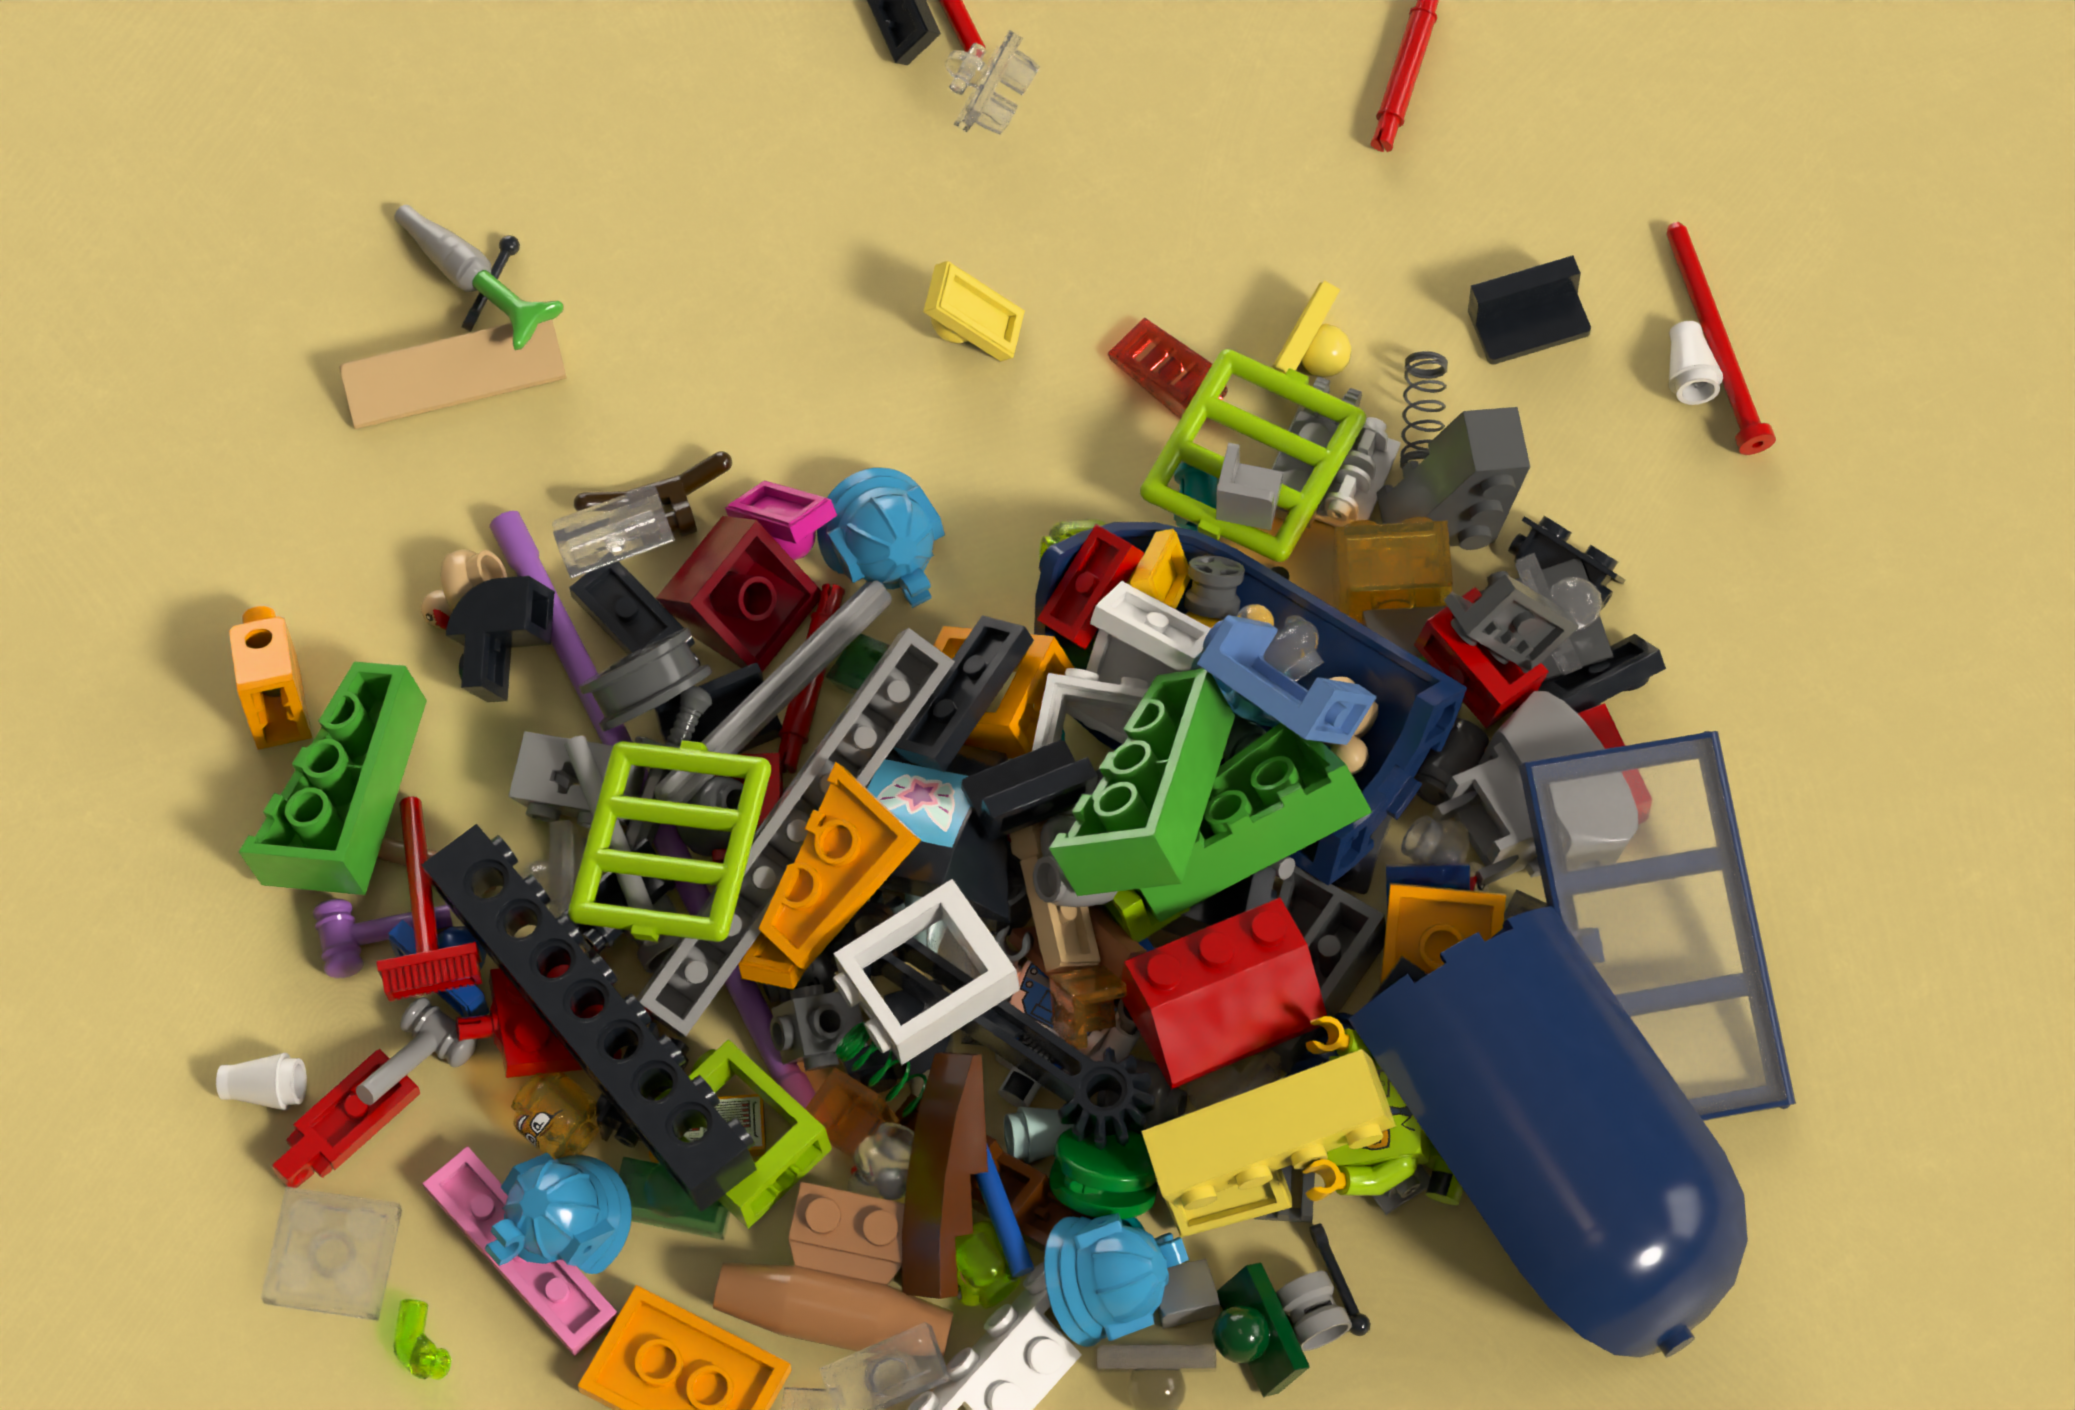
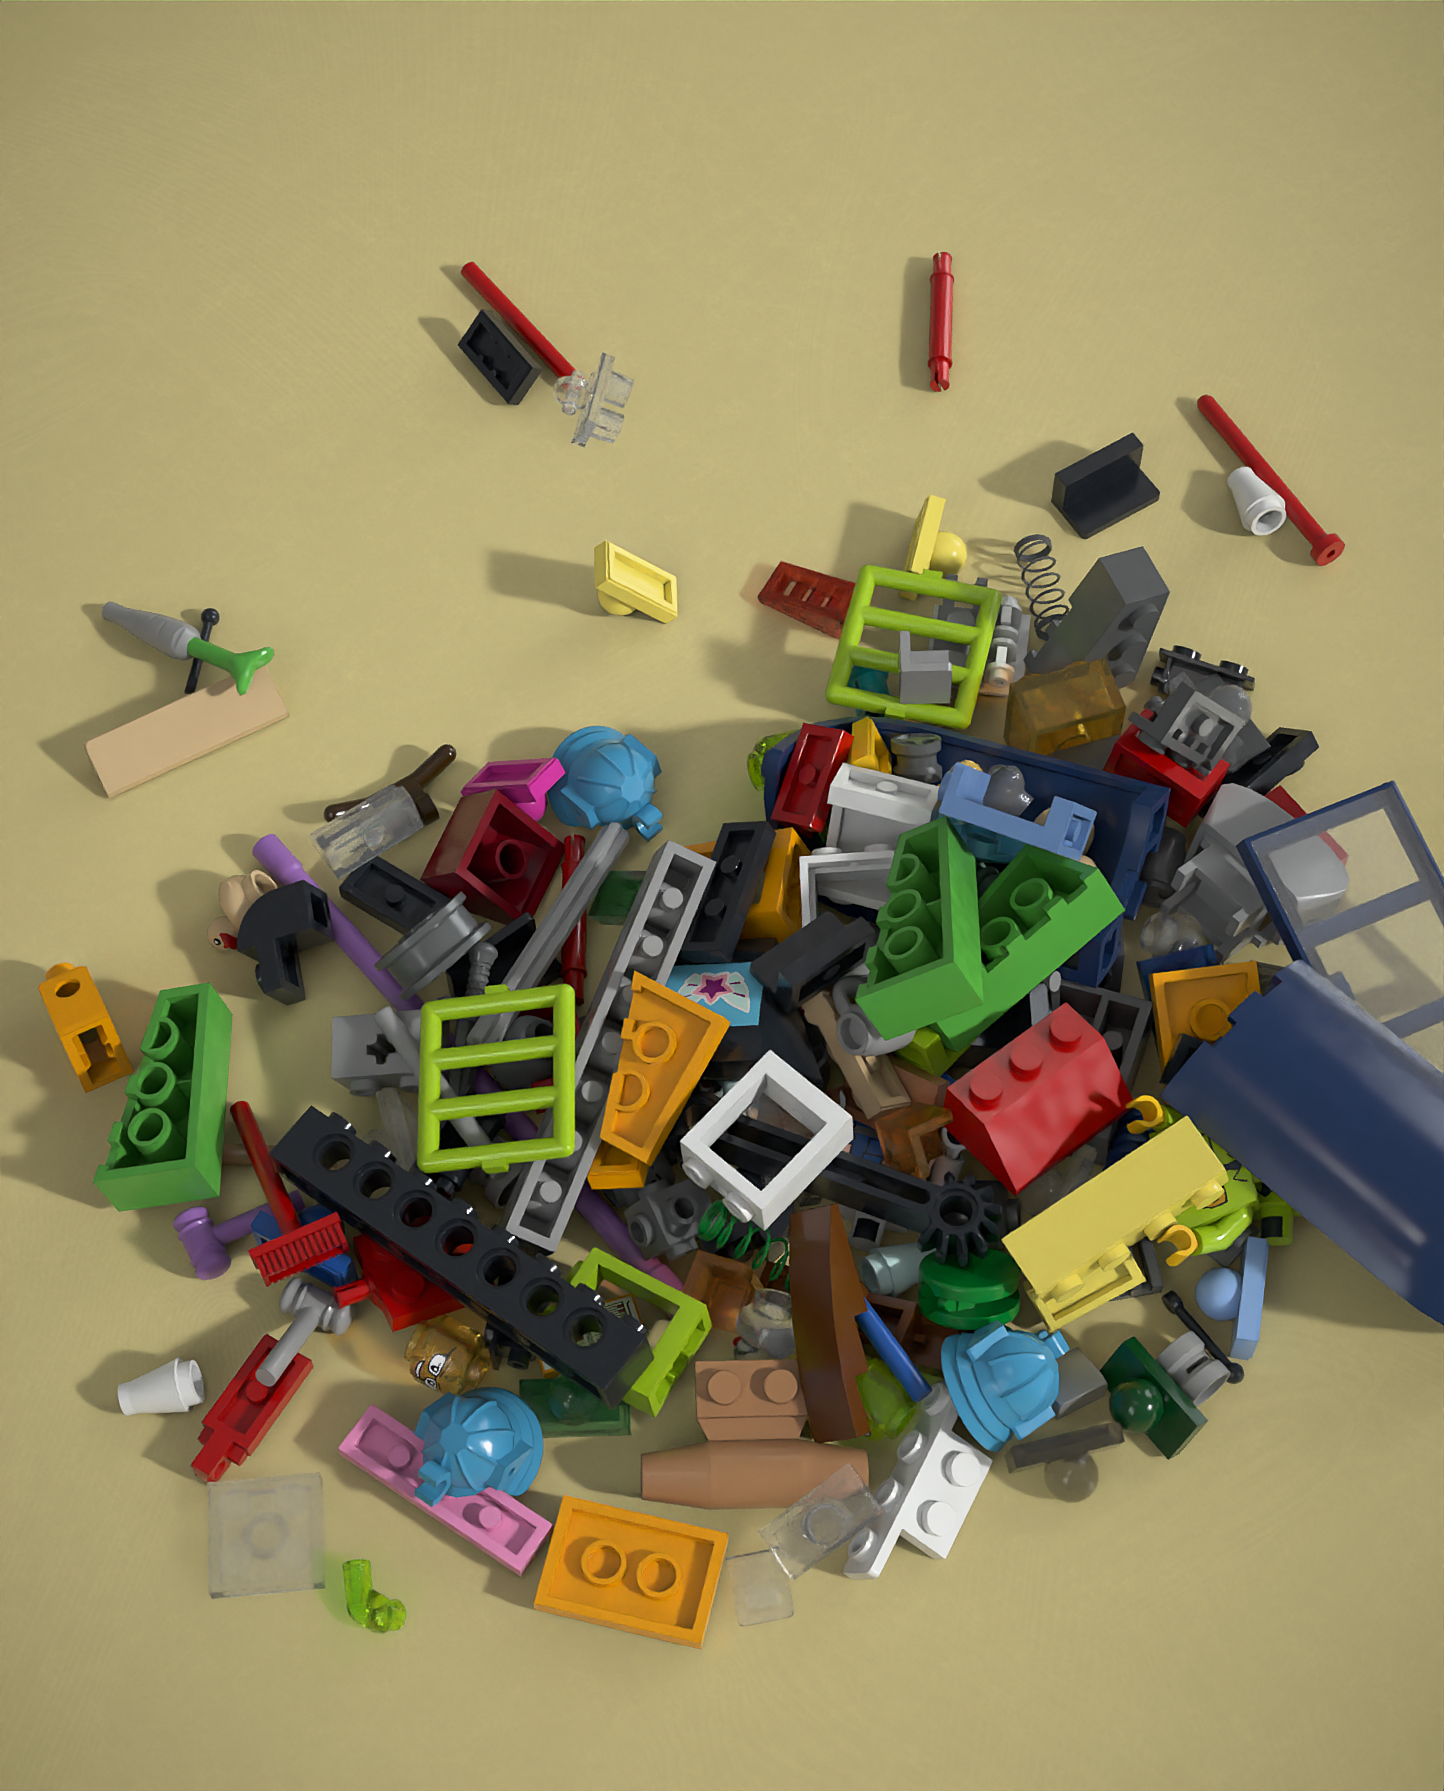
camera: 15 degrees left, 5 degrees down
(1385, 1247) = (1237, 1296): none -> light blue tile

